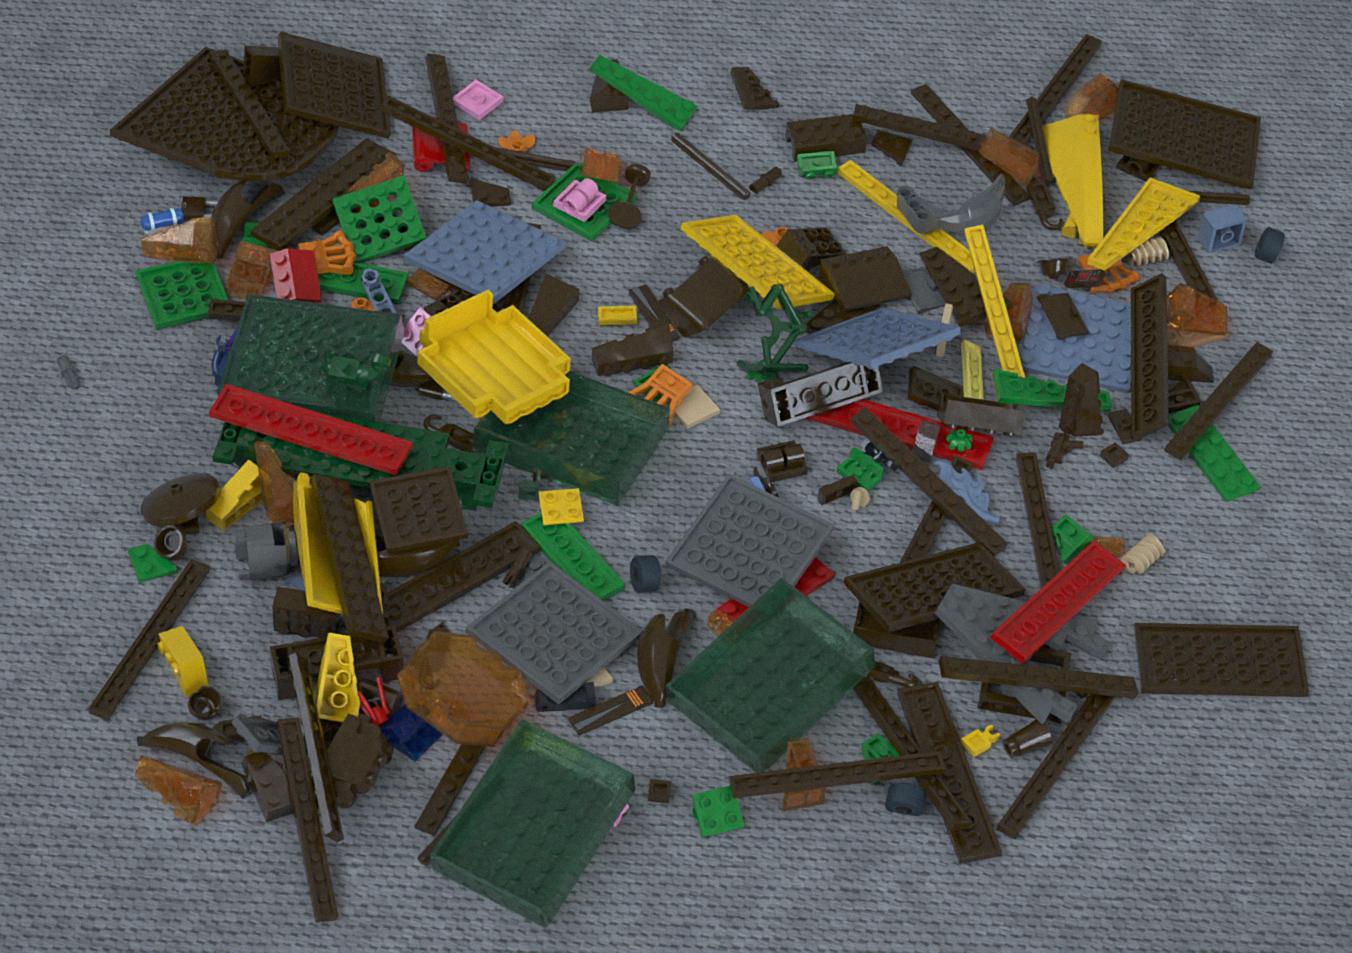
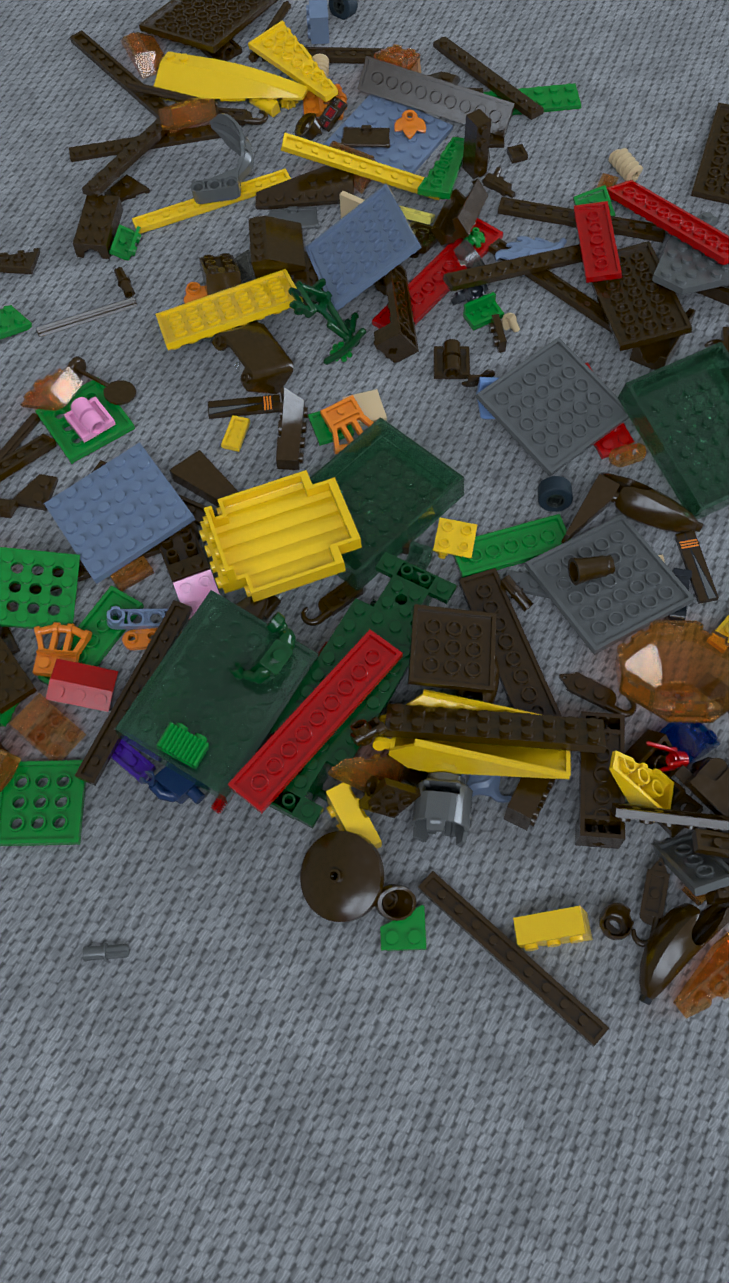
camera: 65 degrees left, 15 degrees up
(247, 341) = (183, 745): none -> green brick
(258, 504) = (387, 796): none -> dark brown plate
(308, 465) = (364, 731): none -> dark brown plate
(554, 603) = (590, 568): none -> dark brown plant
(638, 598) = (596, 501): none -> dark brown wedge
(998, 540) = (597, 242): none -> red plate
(1098, 346) = (410, 125): none -> orange plate

